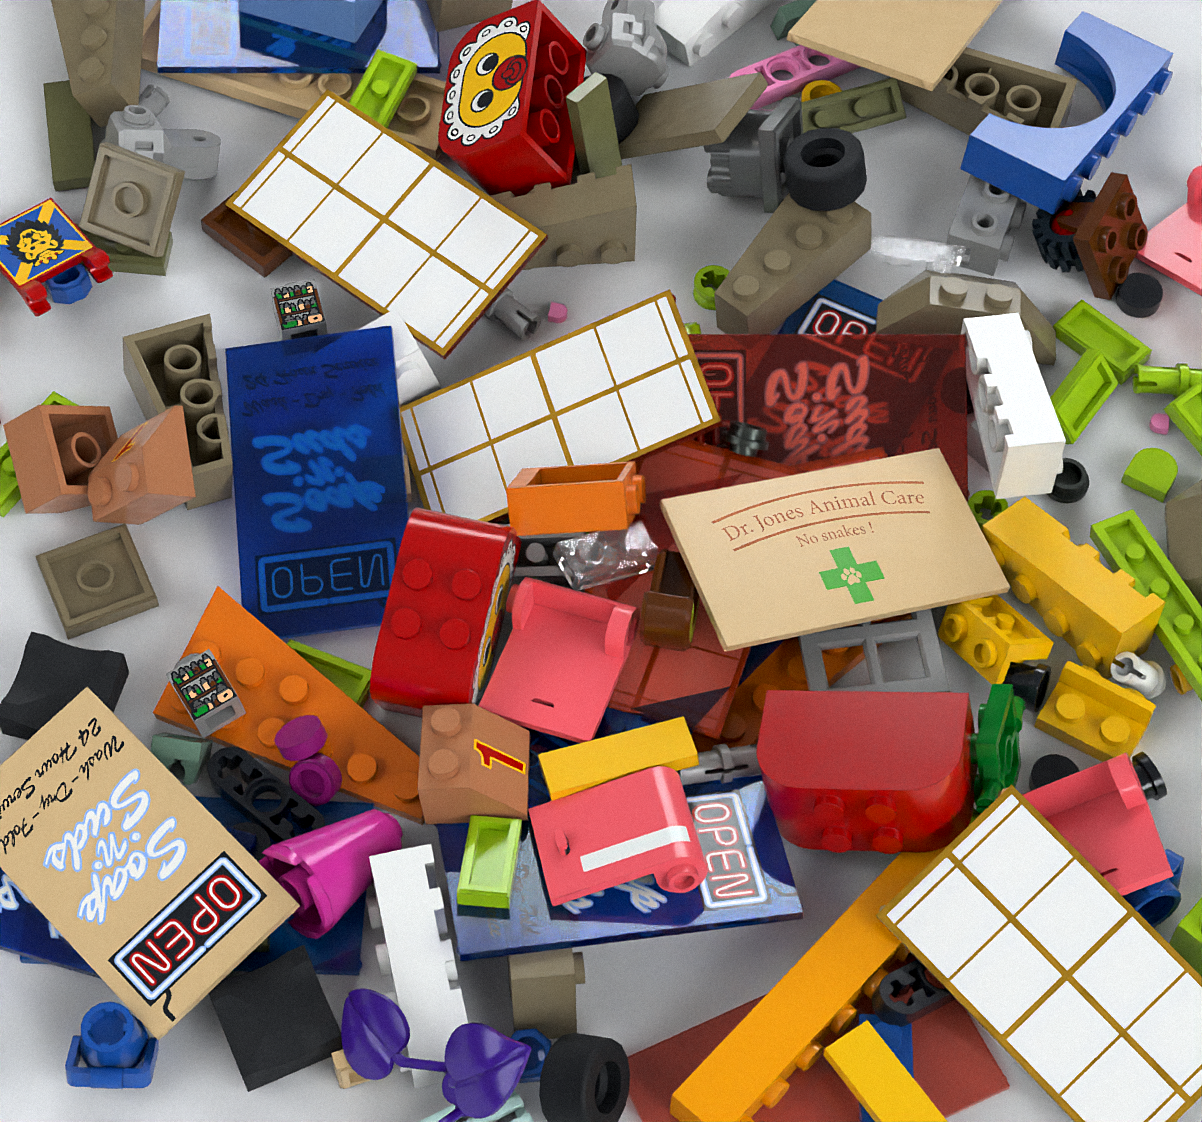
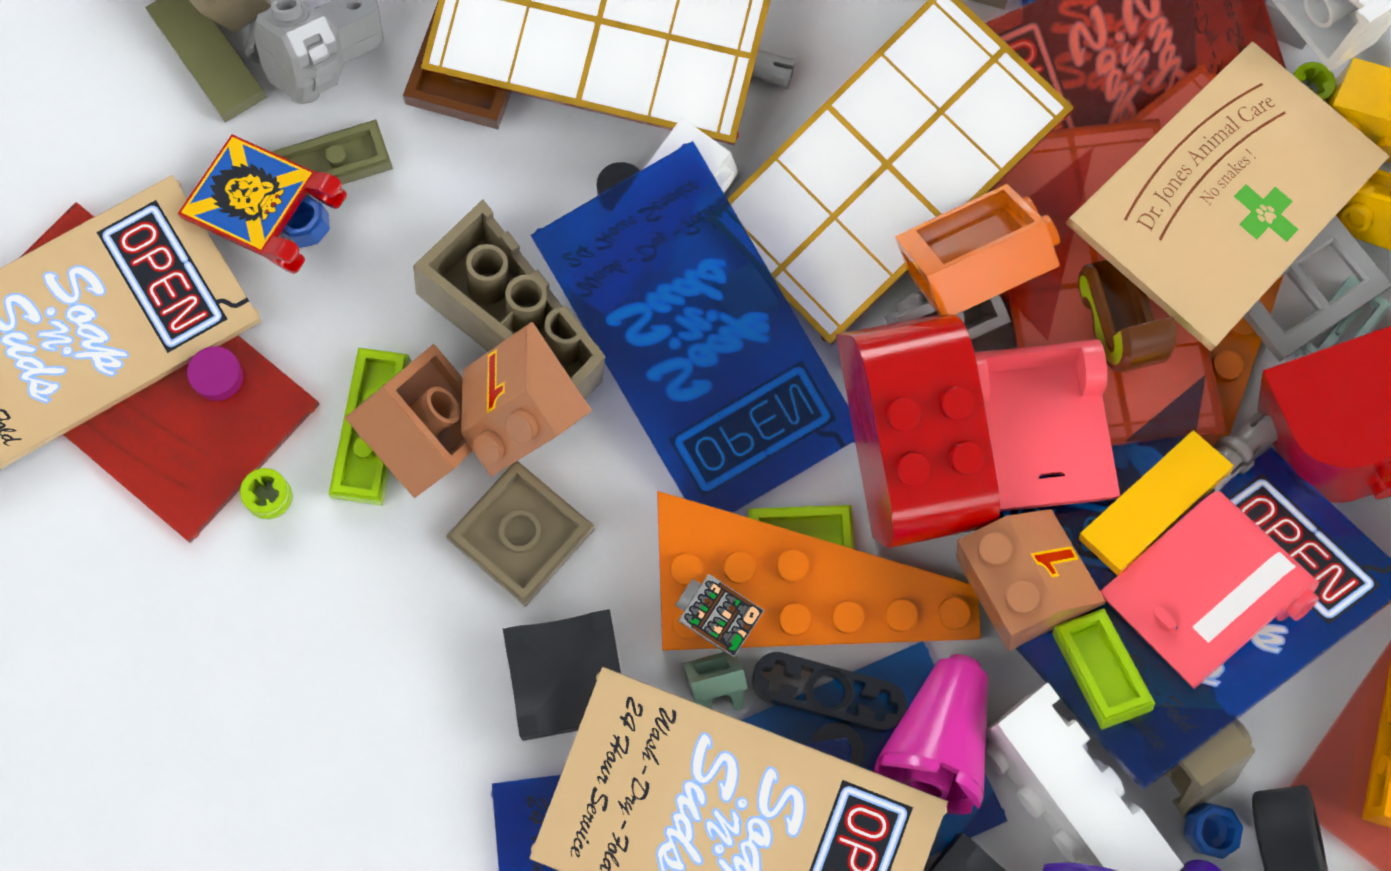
camera: 30 degrees left, 15 degrees up
(131, 199) = (327, 104): dark tan tile -> none
(298, 310) = (563, 159): brick -> none
(301, 738) = (833, 616): magenta tile -> none
(316, 779) = (863, 647): magenta tile -> none
(557, 313) = (803, 45): bright pink piece -> none
(606, 556) = (1026, 306): clear plate -> none
(745, 438) = (1087, 110): pearl dark grey plate -> none

